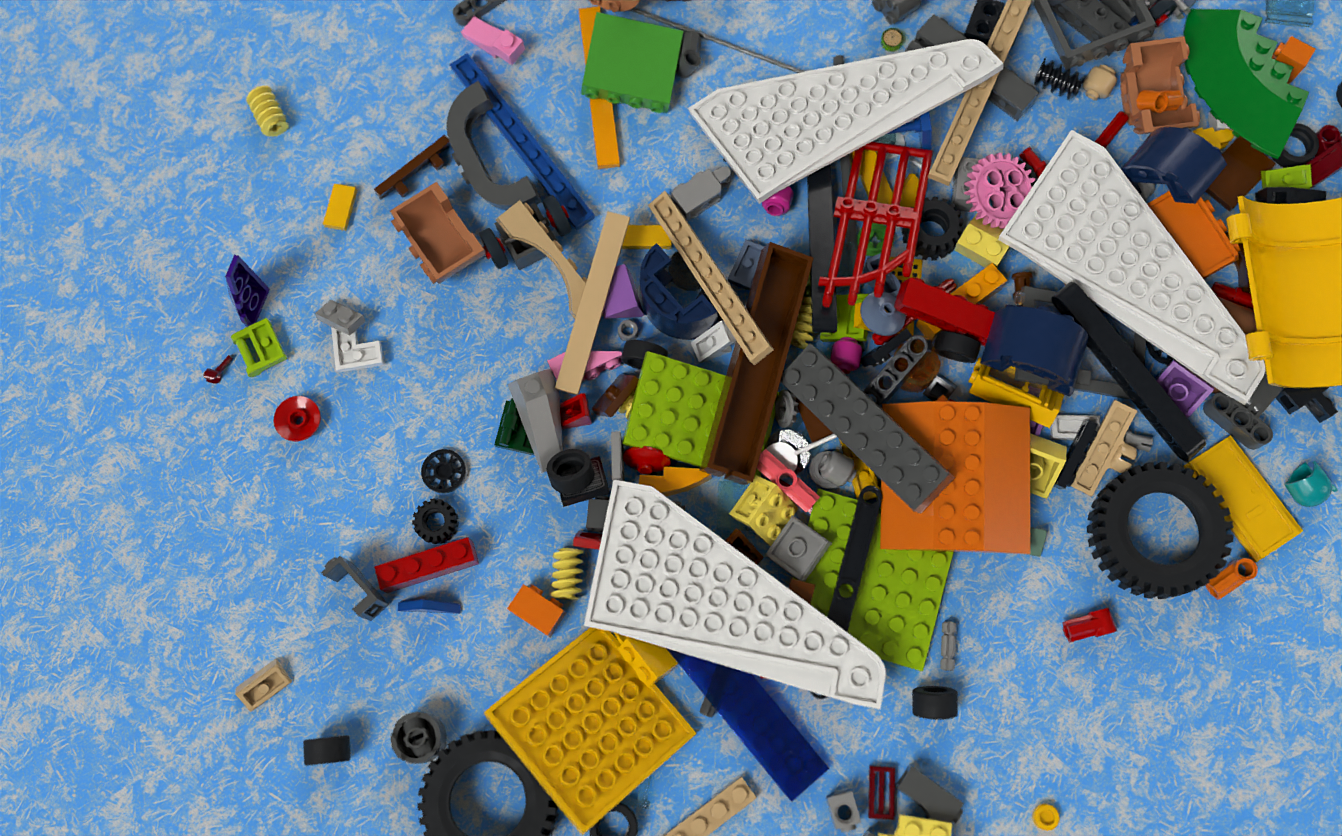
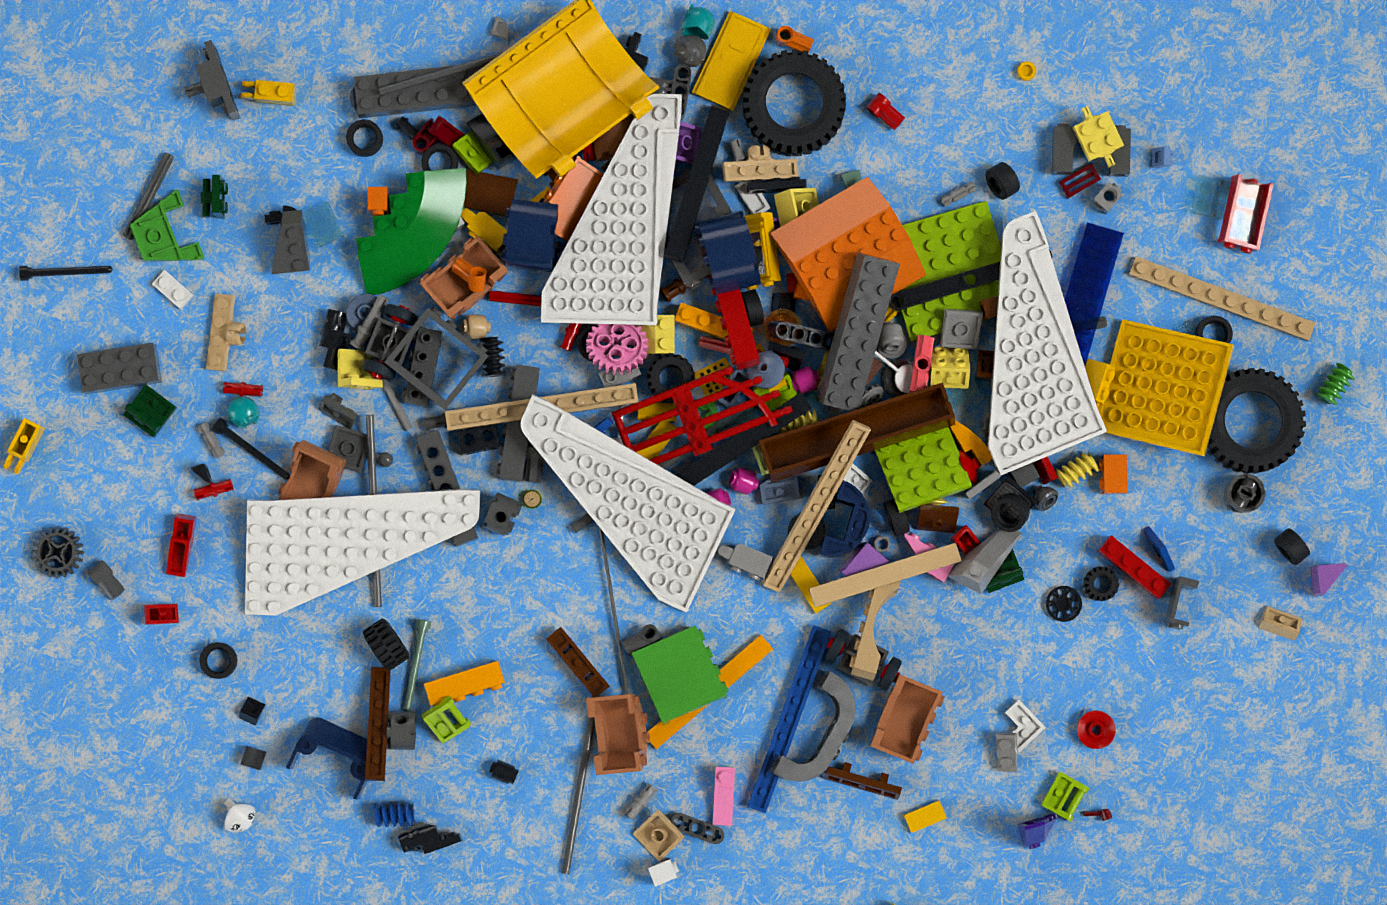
camera: 130 degrees left, 10 degrees up
(268, 766) = (1324, 576): none -> medium lavender slope
(562, 521) = (1045, 497): none -> dark grey brick
(782, 233) = (743, 481): none -> dark pink head
(1281, 458) = (690, 50): none -> dark grey hair

